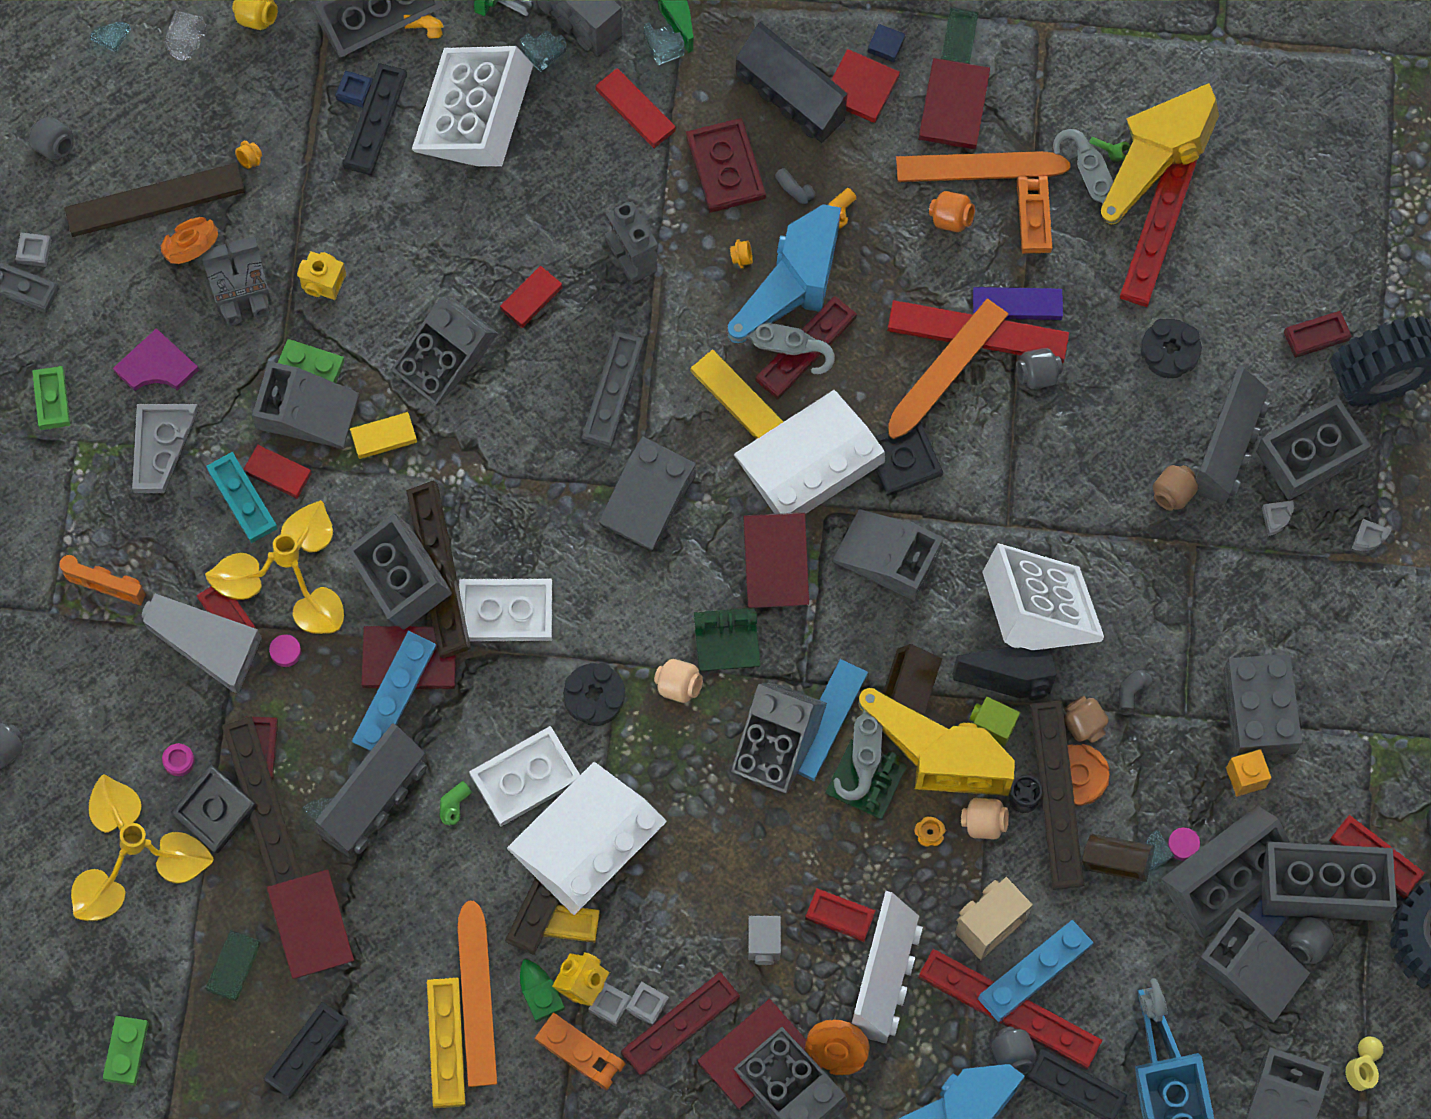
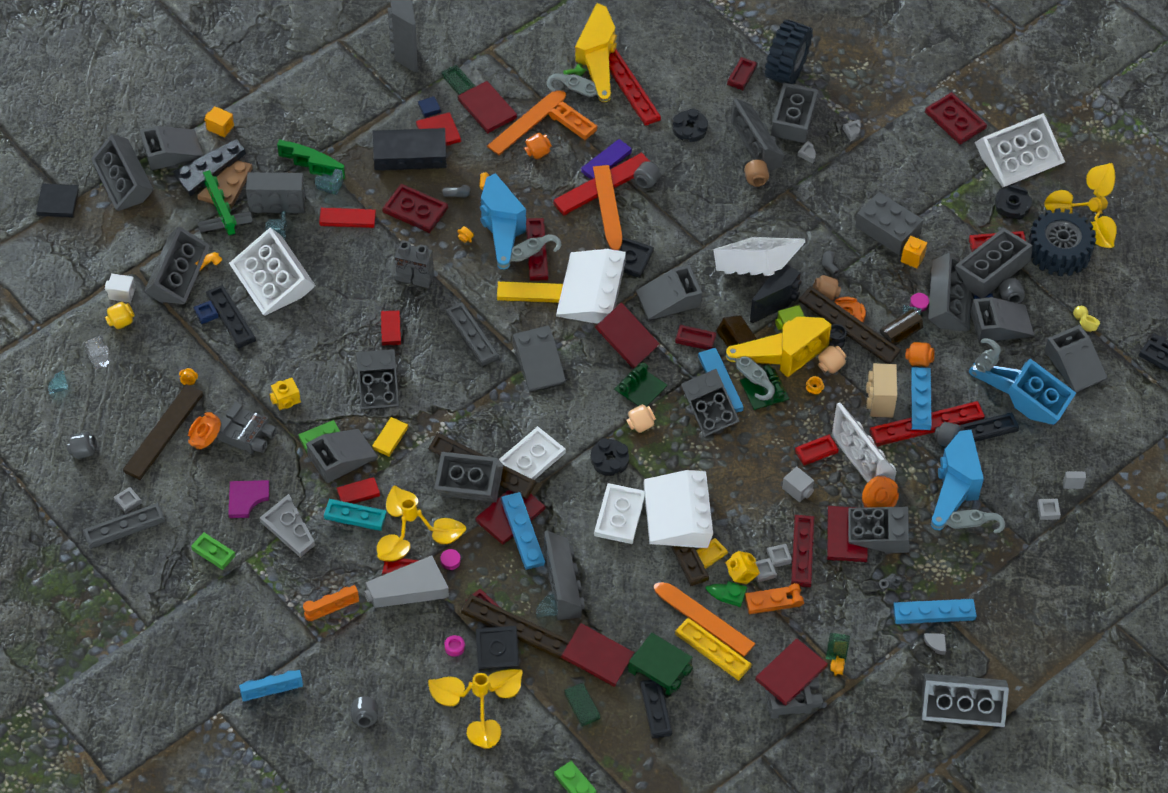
camera: 45 degrees left, 15 degrees down
(363, 1005) = (661, 663): none -> dark green panel
(451, 803) = (598, 553): bright green arm -> none
(862, 636) = (695, 337): none -> dark red tile
(1100, 914) = (920, 354): none -> orange head

